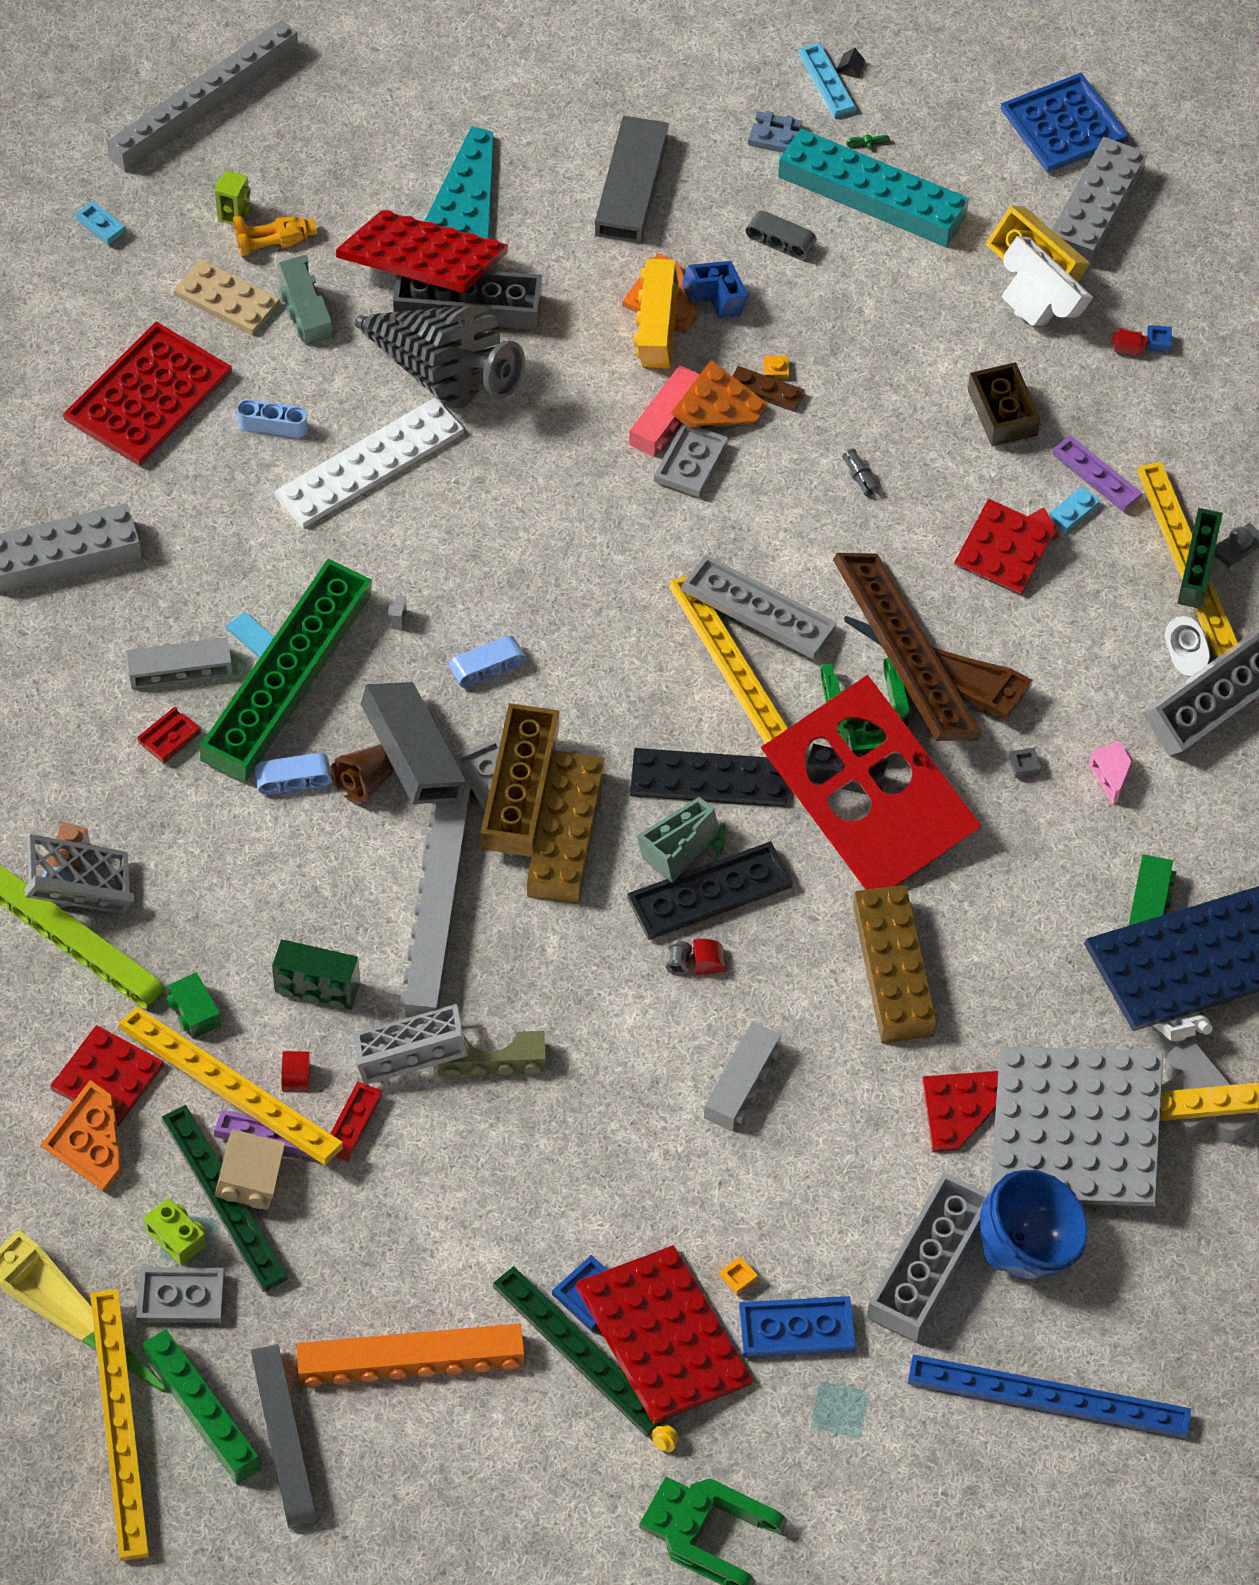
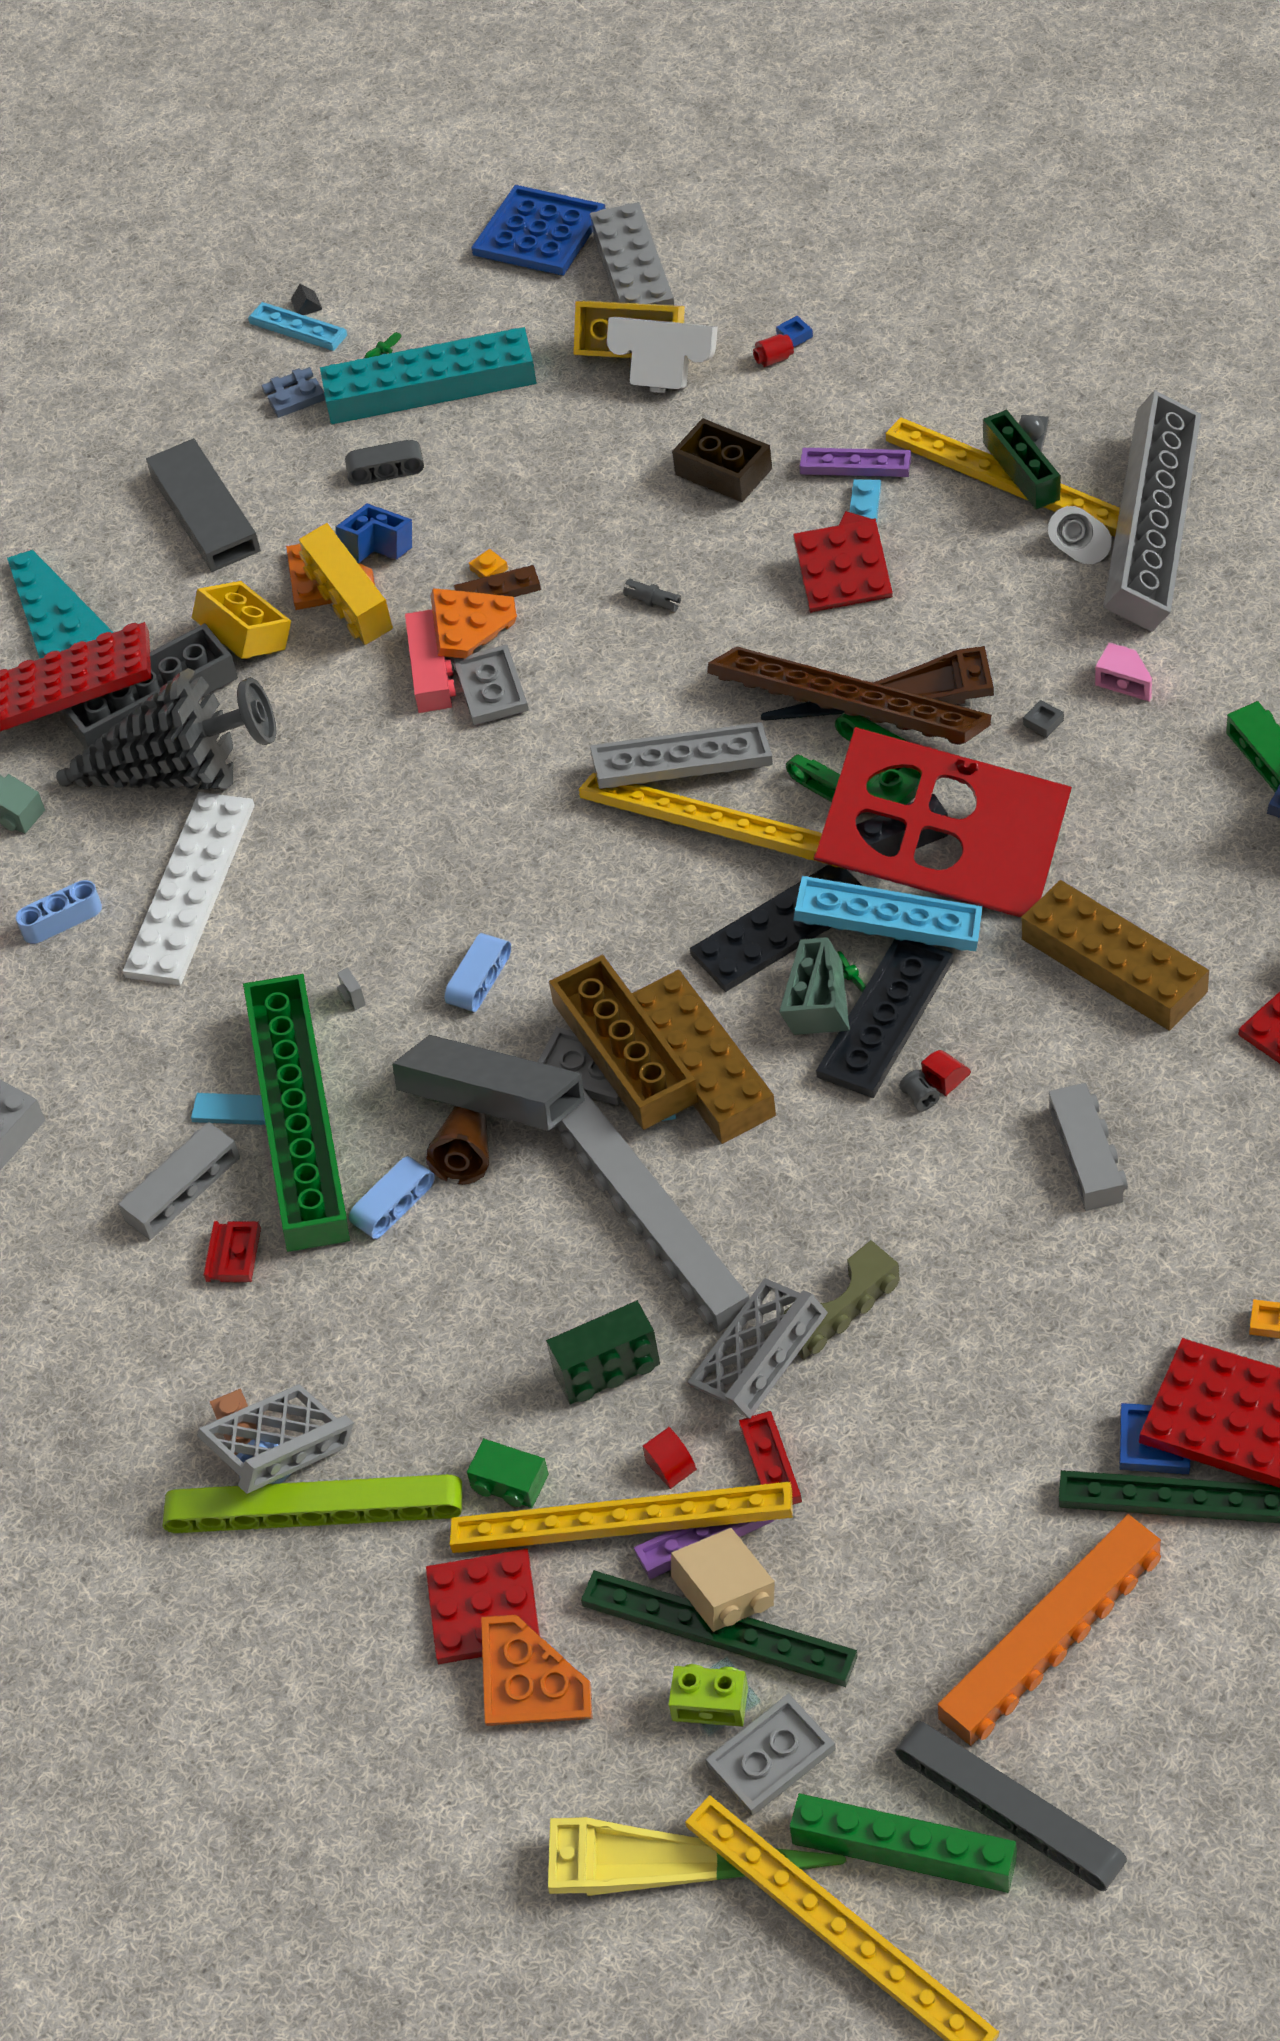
camera: 30 degrees left, 5 degrees down
(571, 289) = (241, 619): none -> yellow brick
(775, 822) = (888, 913): none -> medium azure plate

